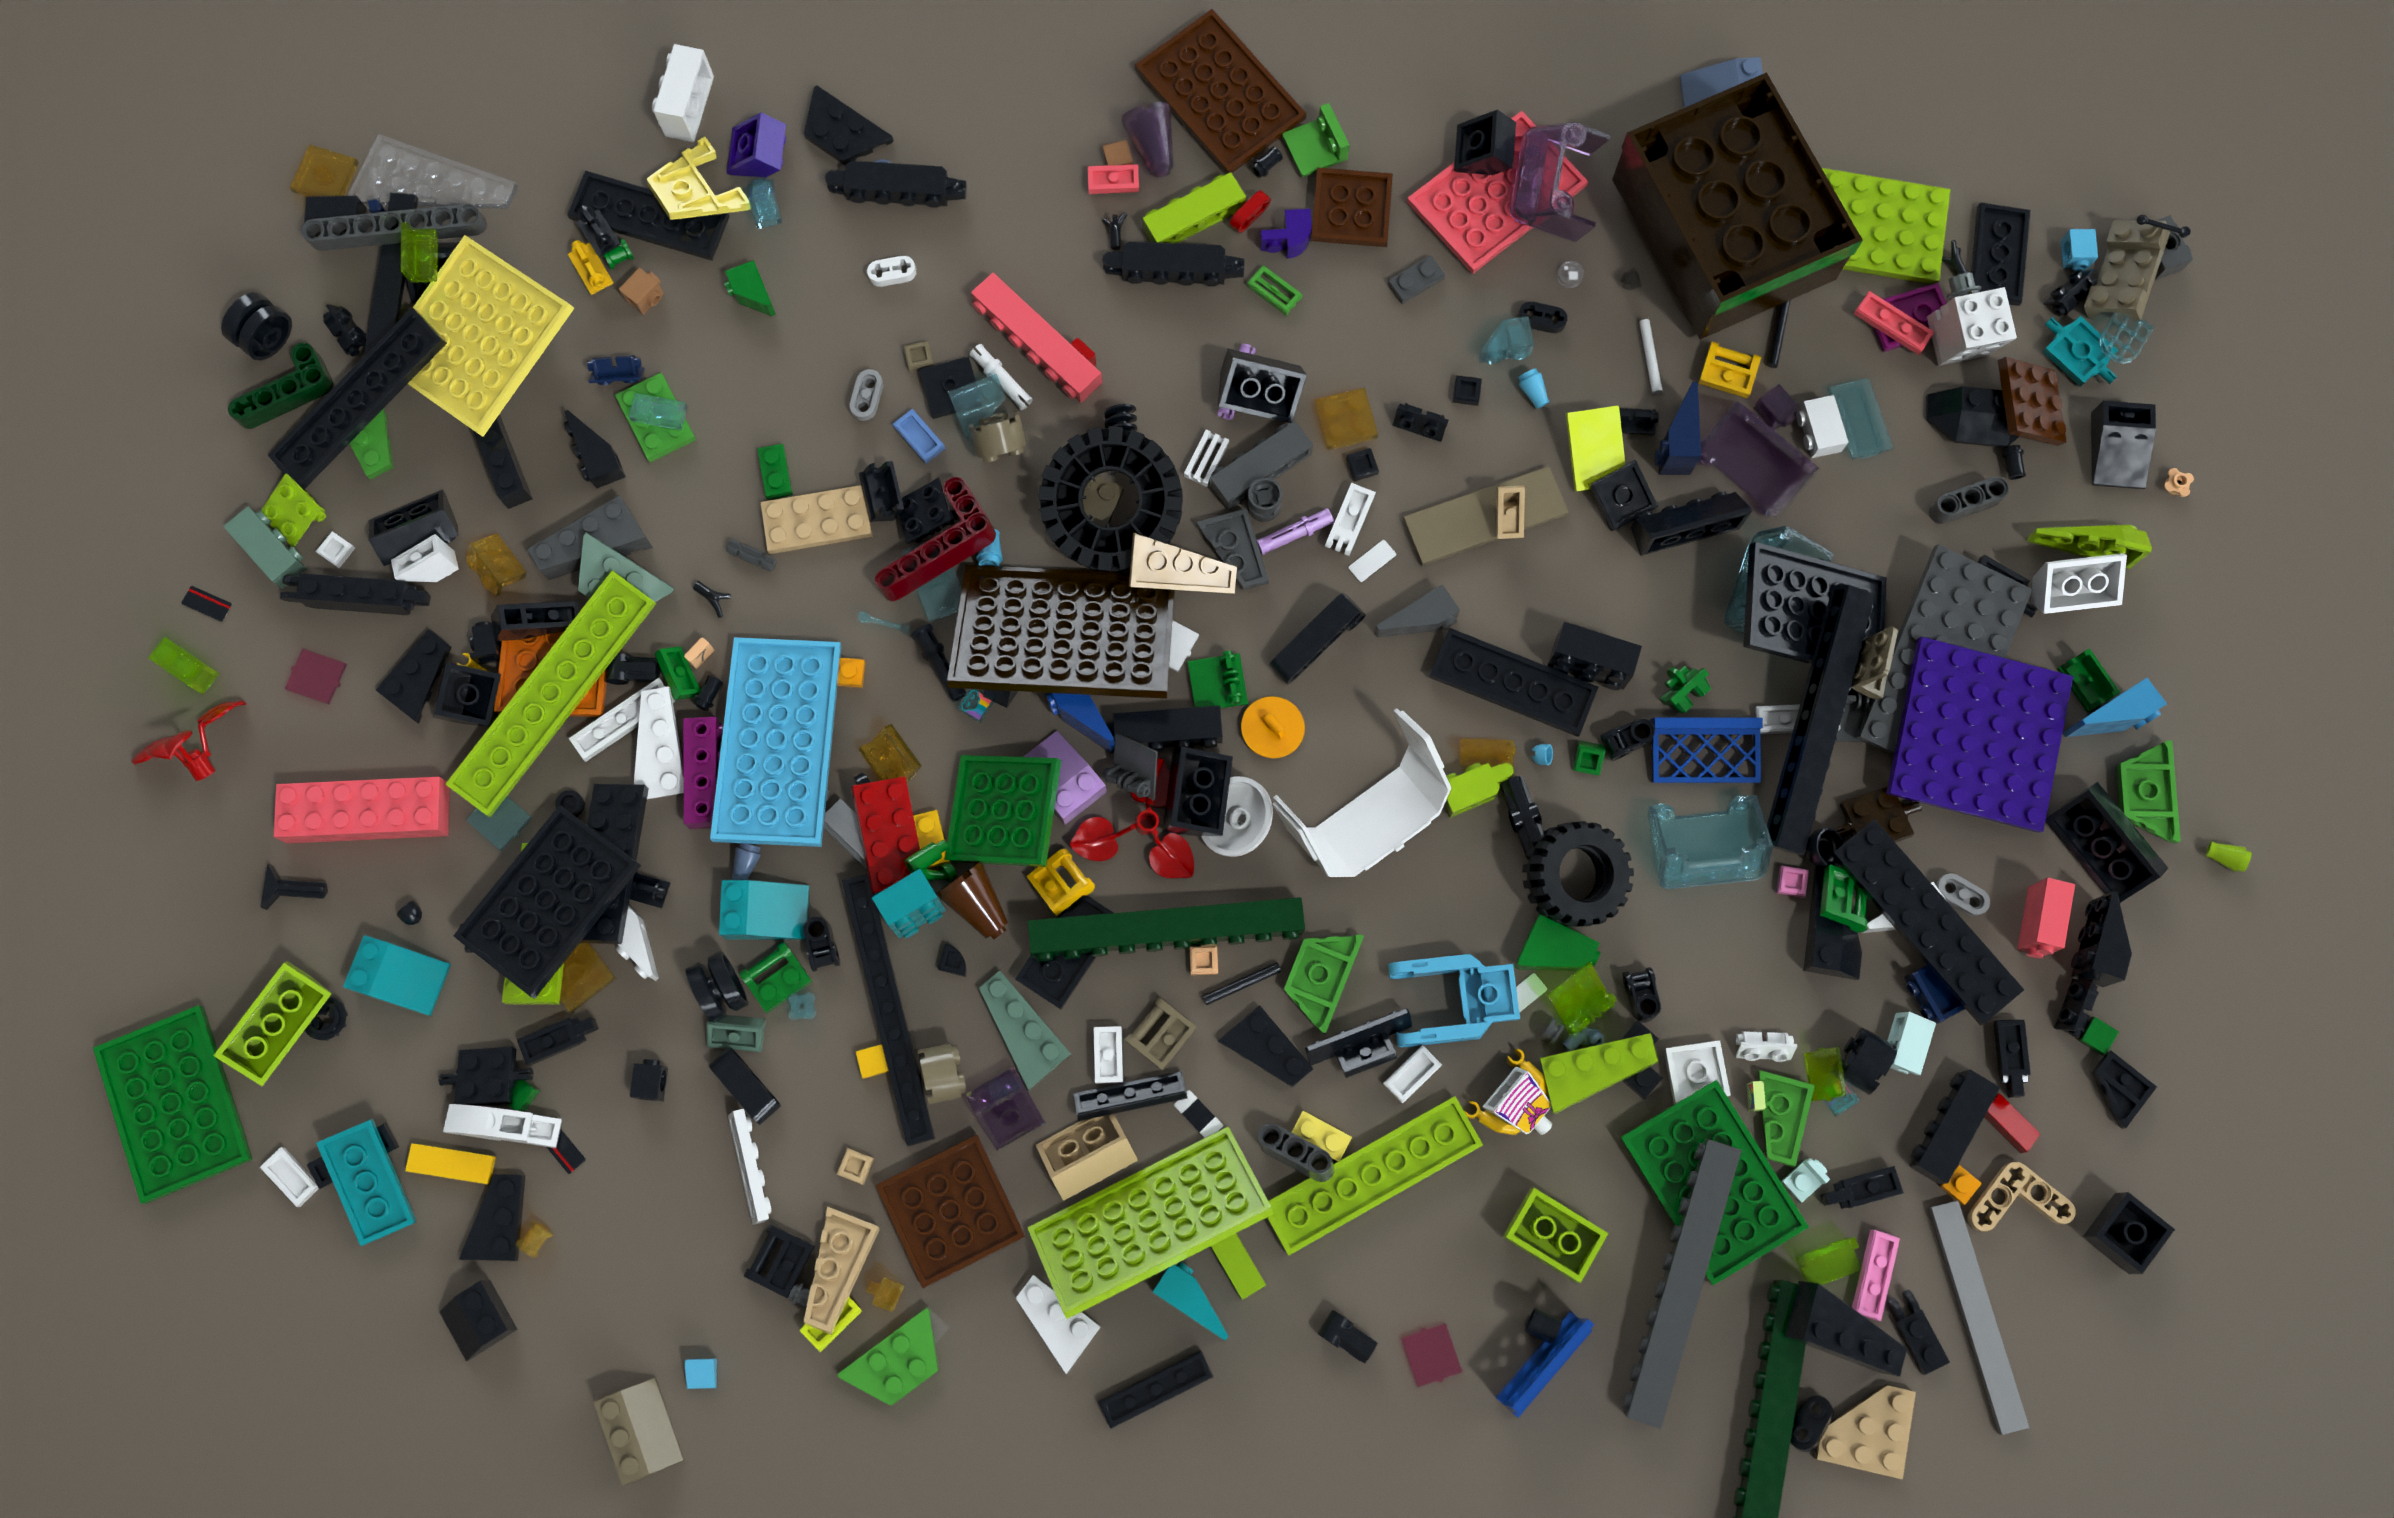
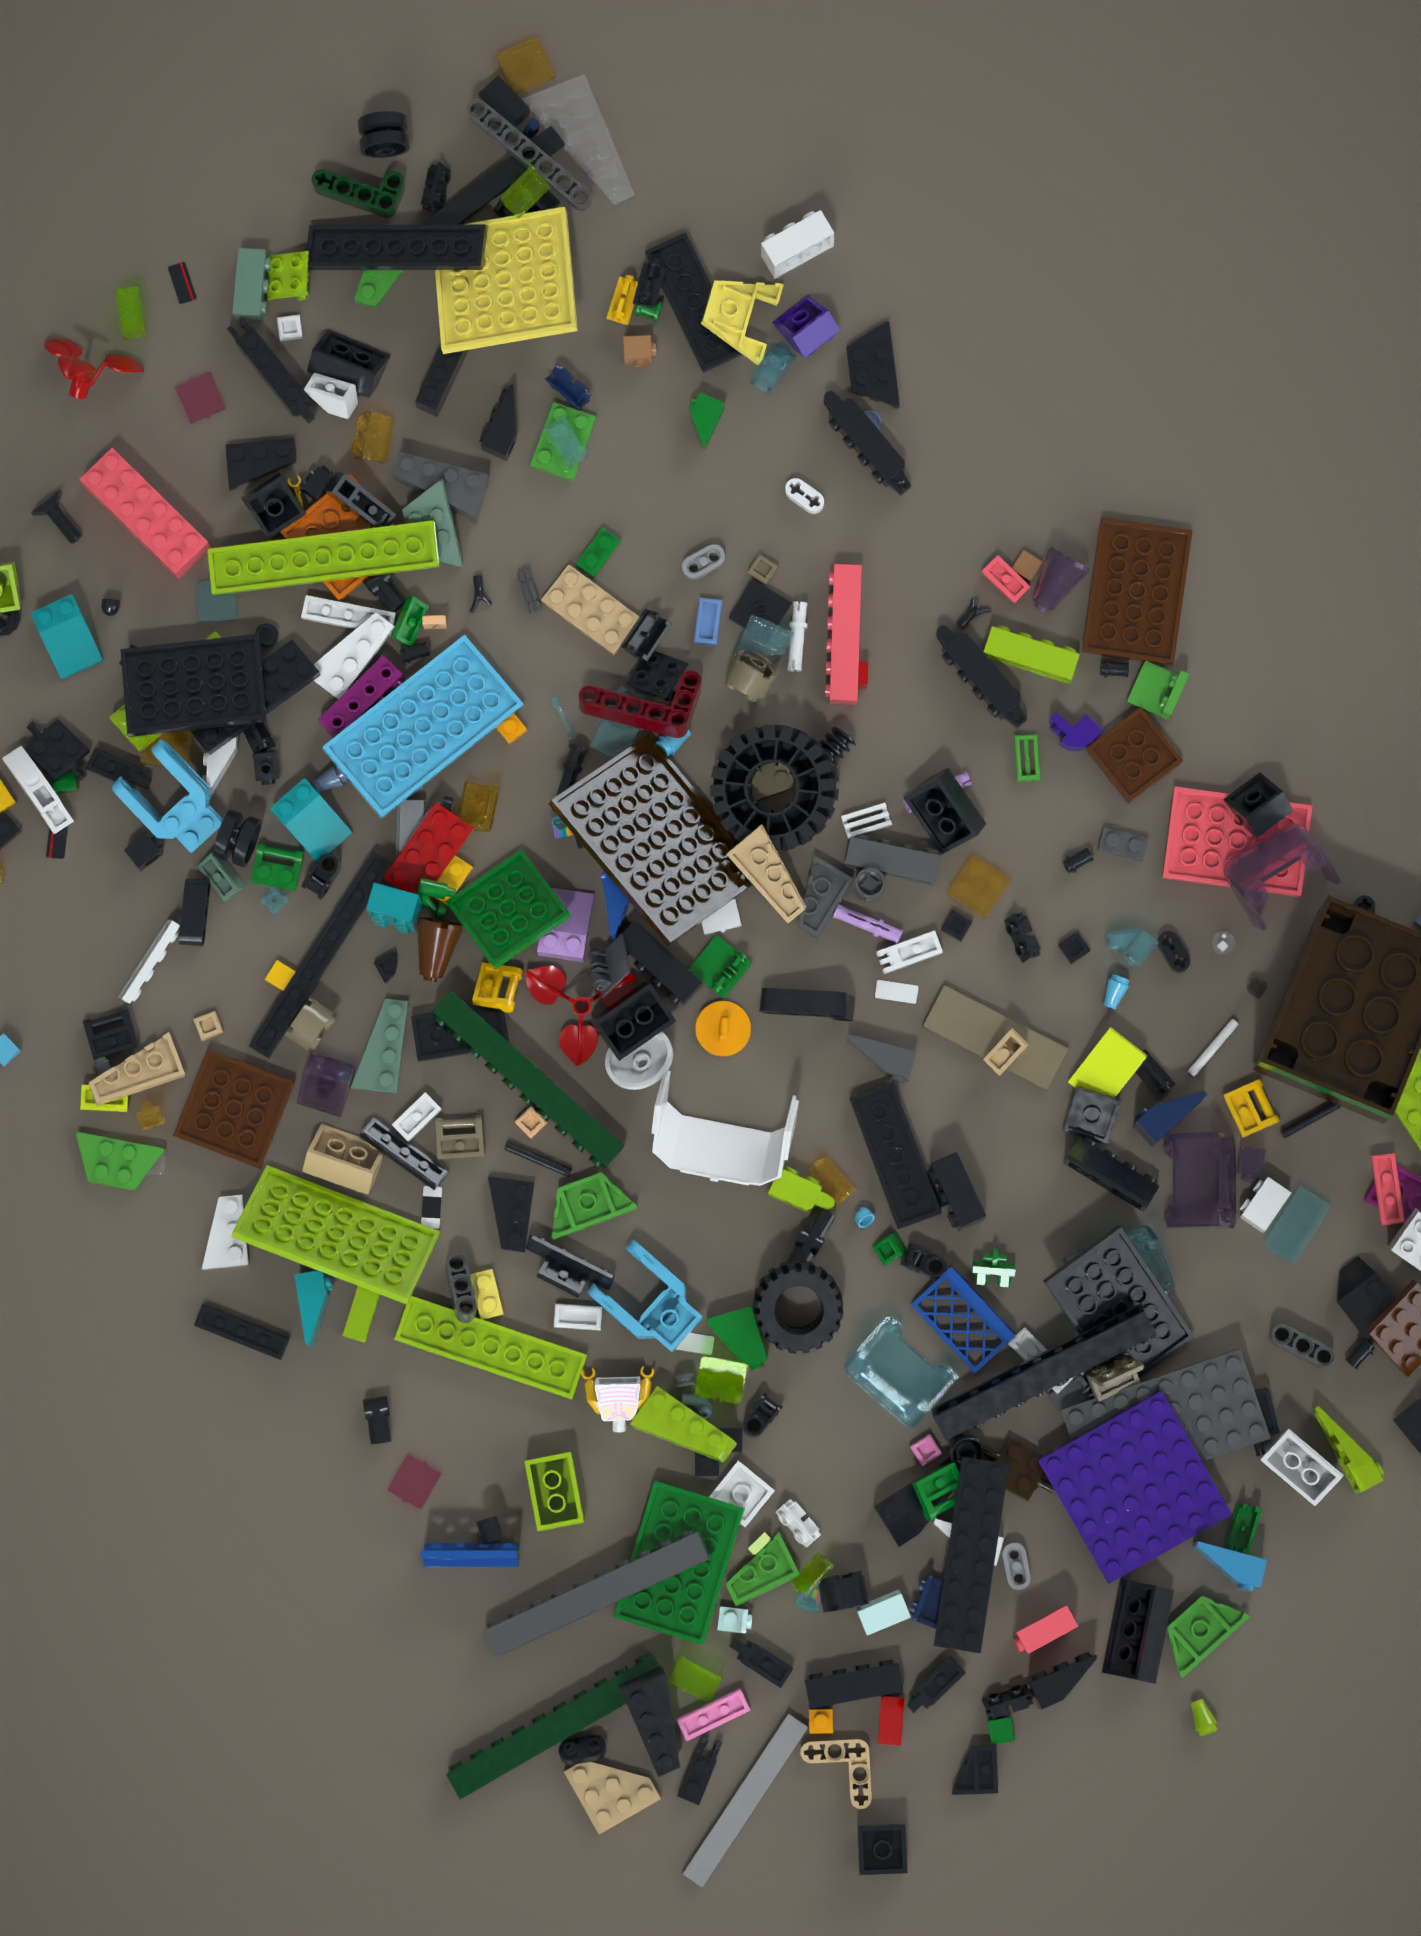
camera: 50 degrees right, 5 degrees up
(660, 1013) = (190, 819): none -> medium azure plate
(677, 895) = (269, 758): none -> black brick
(1250, 211) = (1066, 691): red beam -> none
(1395, 330) = (1077, 860): none -> black pin

